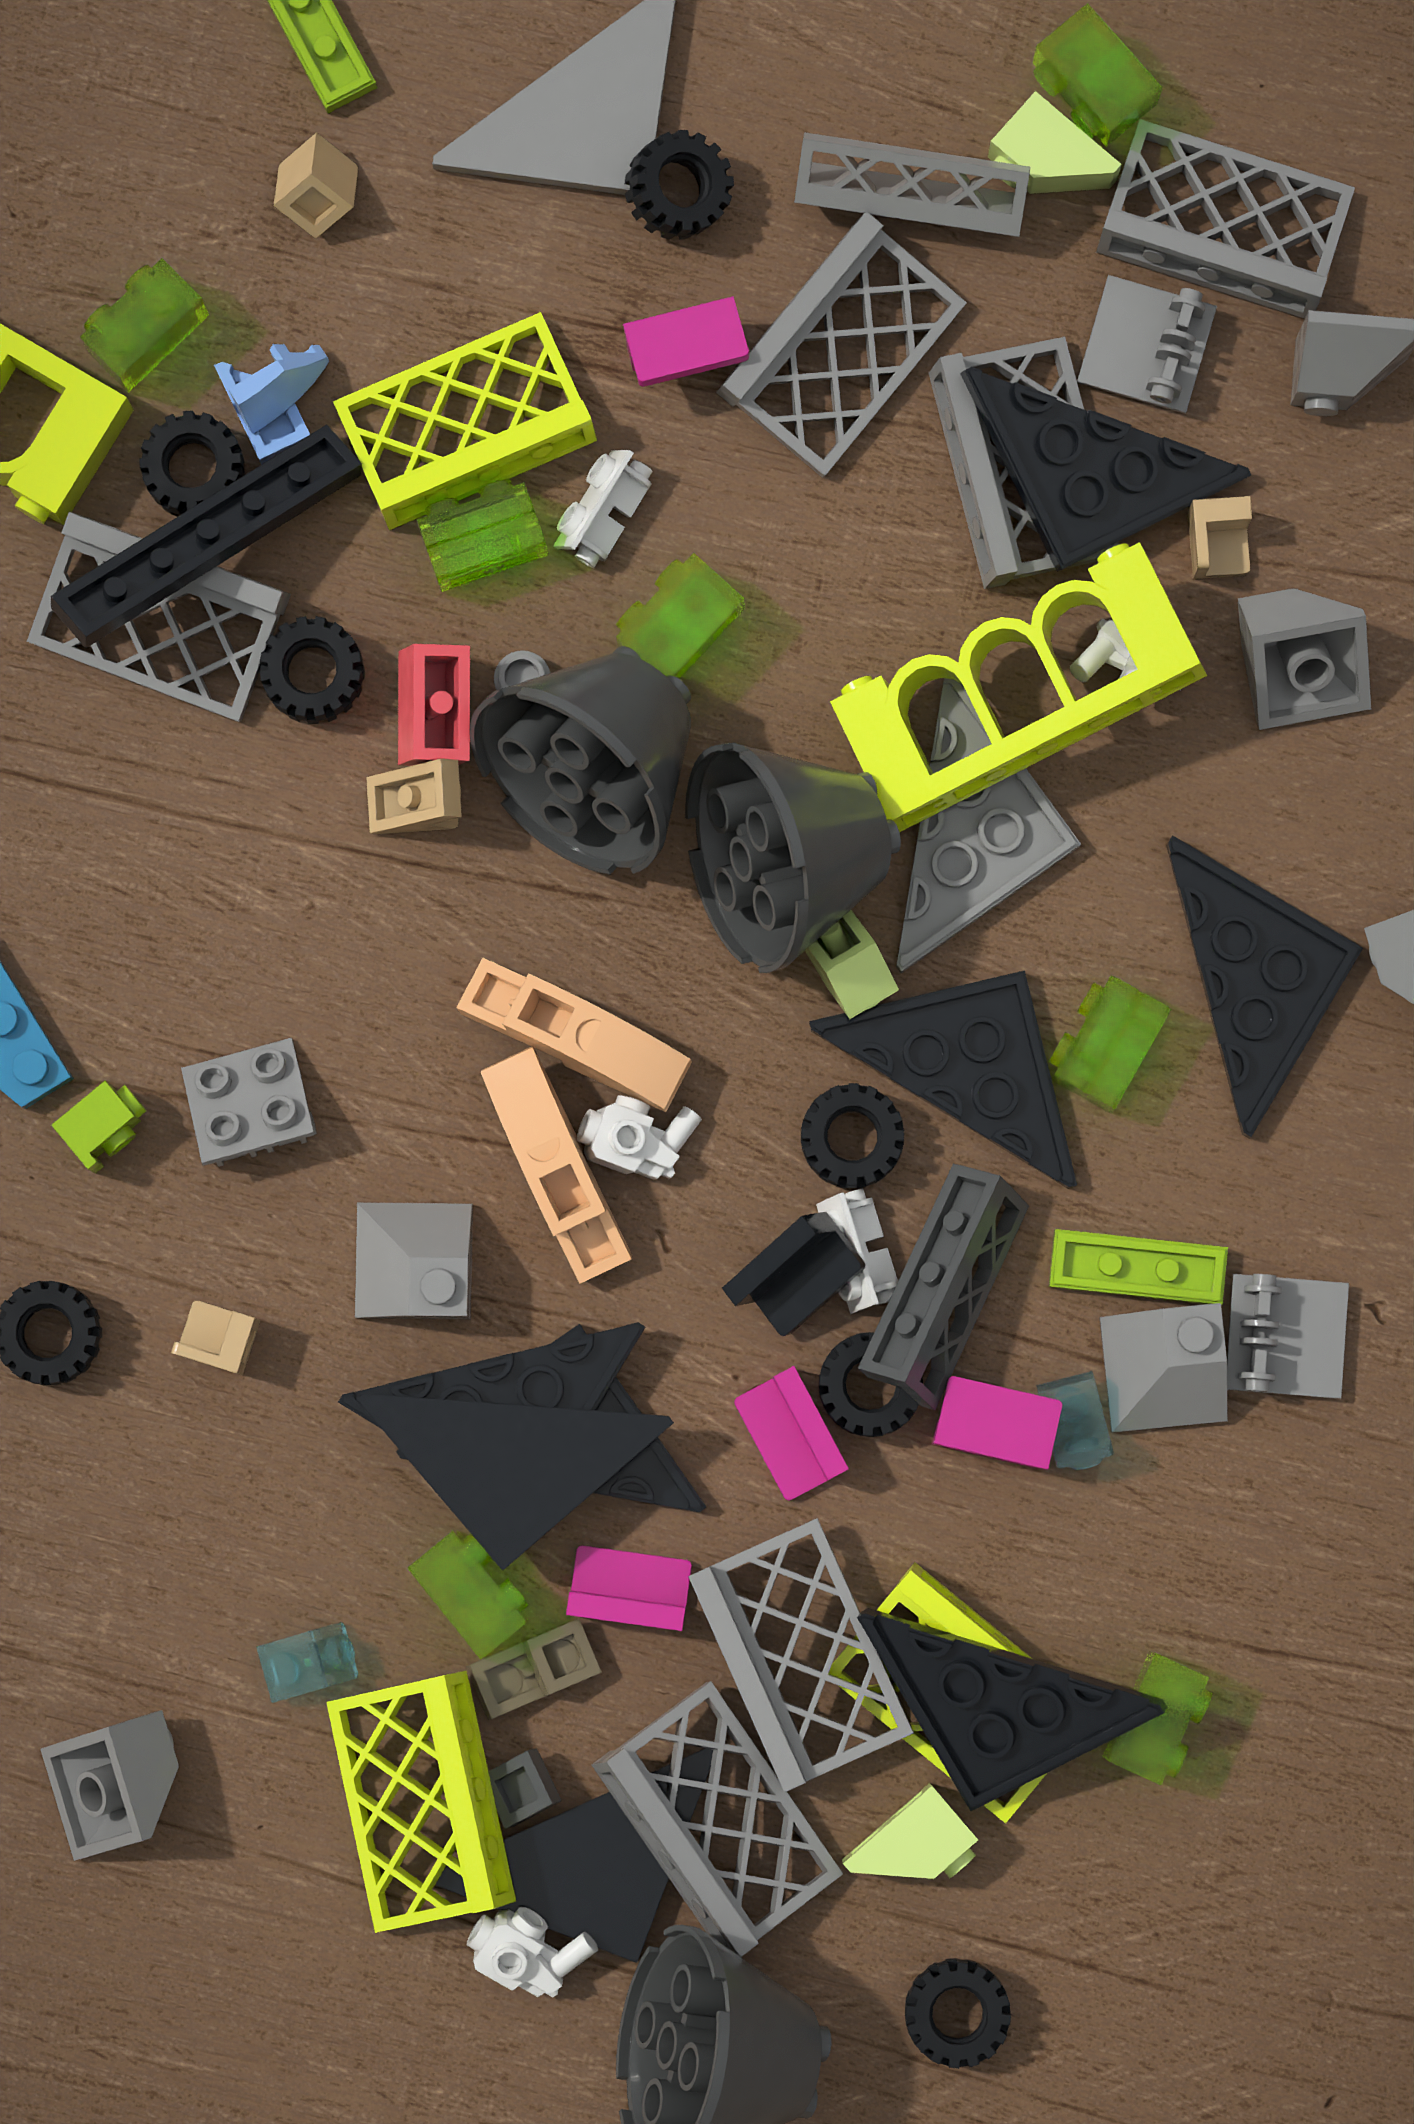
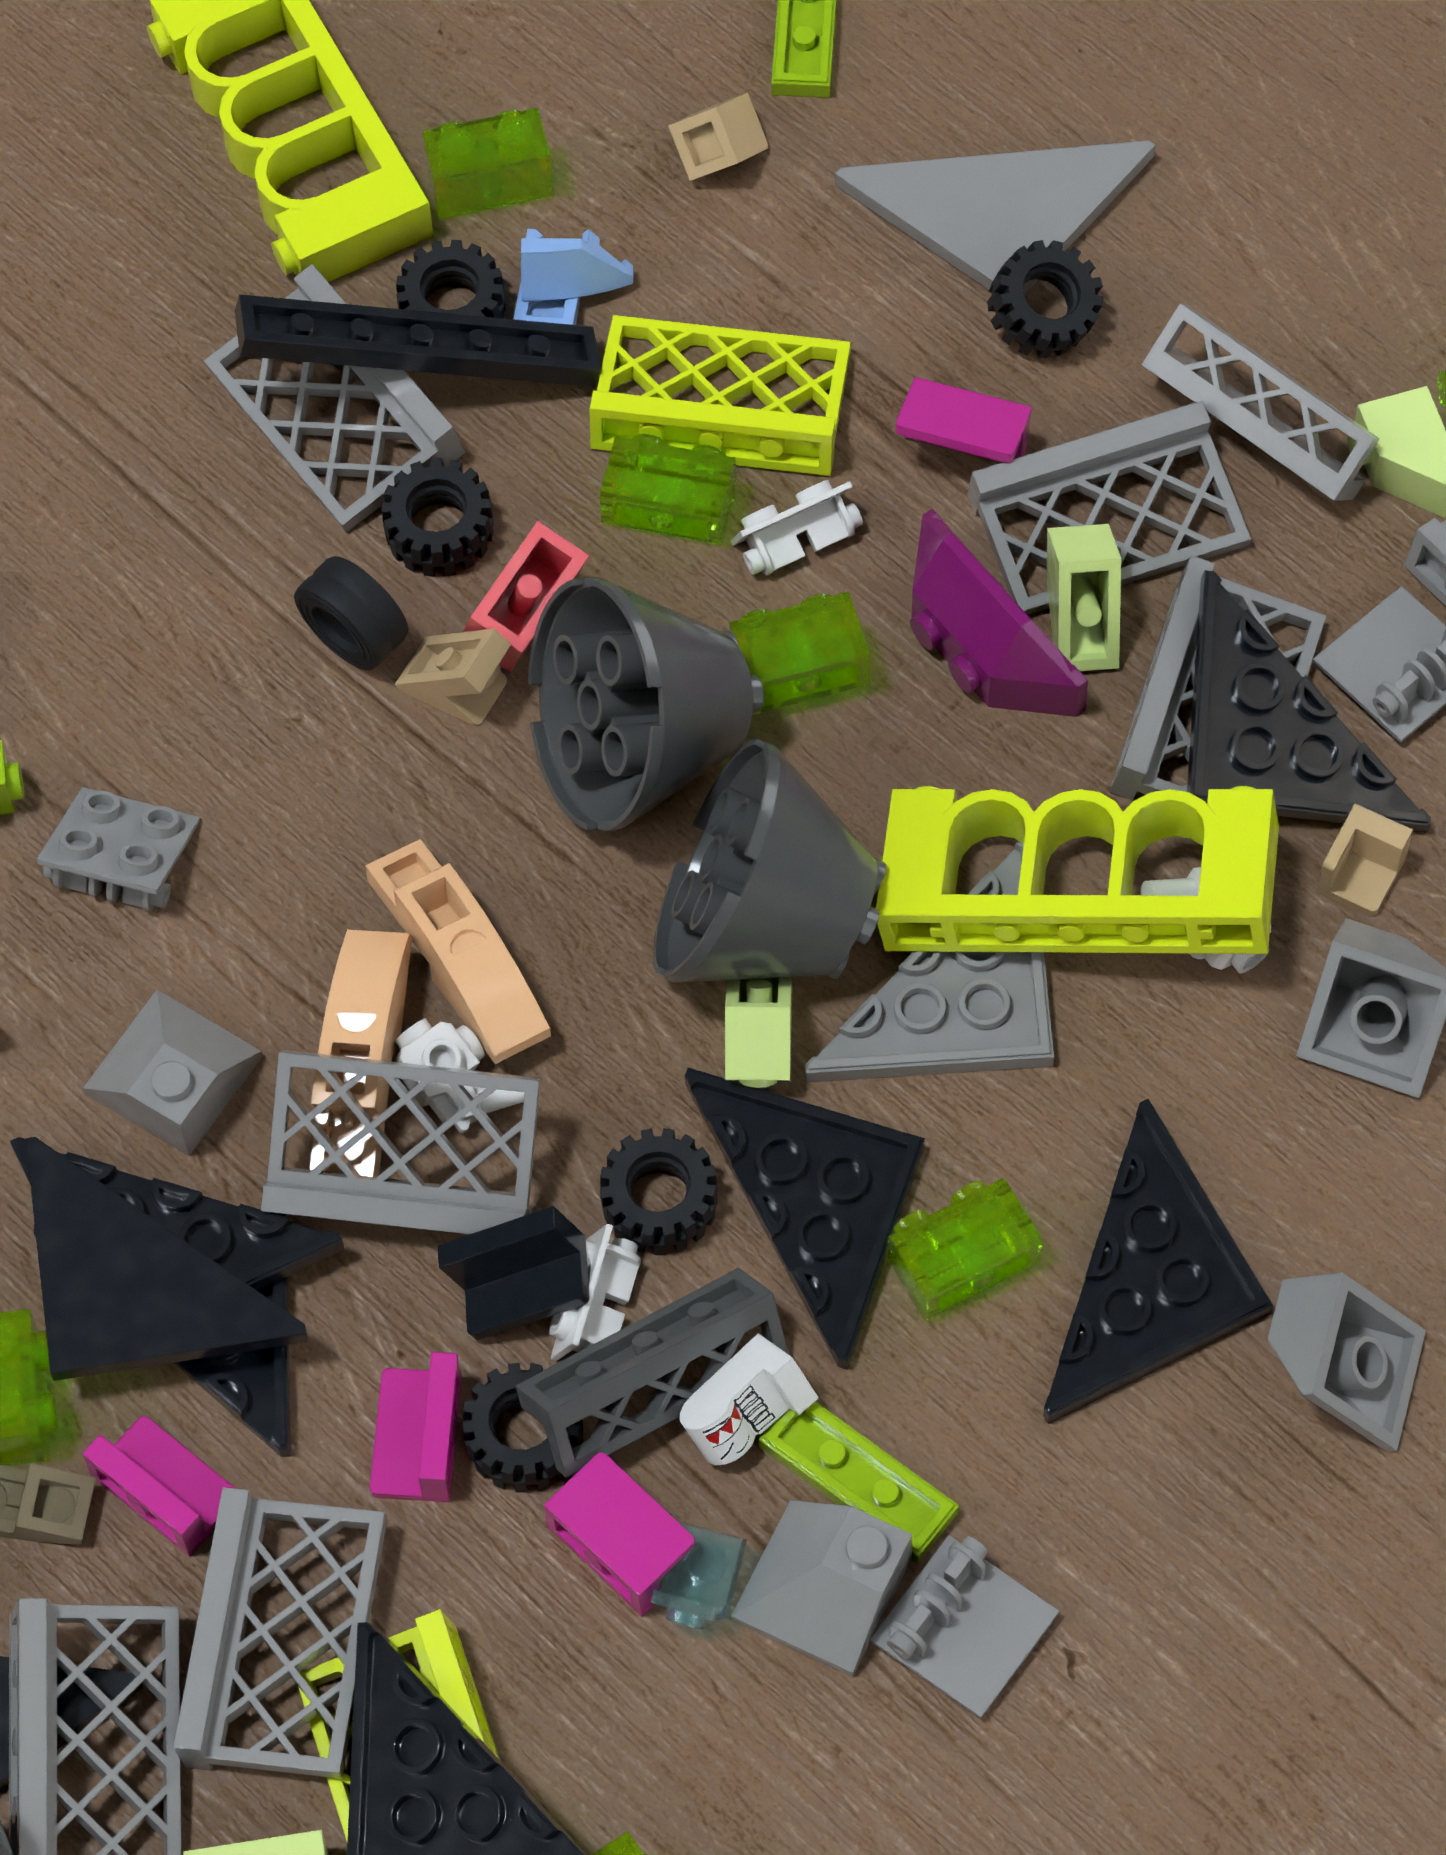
camera: 30 degrees right, 20 degrees down
(306, 802) = (351, 613): none -> black tyre
(653, 1272) = (392, 1200): none -> light grey fence
(806, 512) = (985, 633): none -> magenta wedge
(873, 438) = (1085, 595): none -> yellowish green slope
(1023, 1267) = (744, 1400): none -> white leg

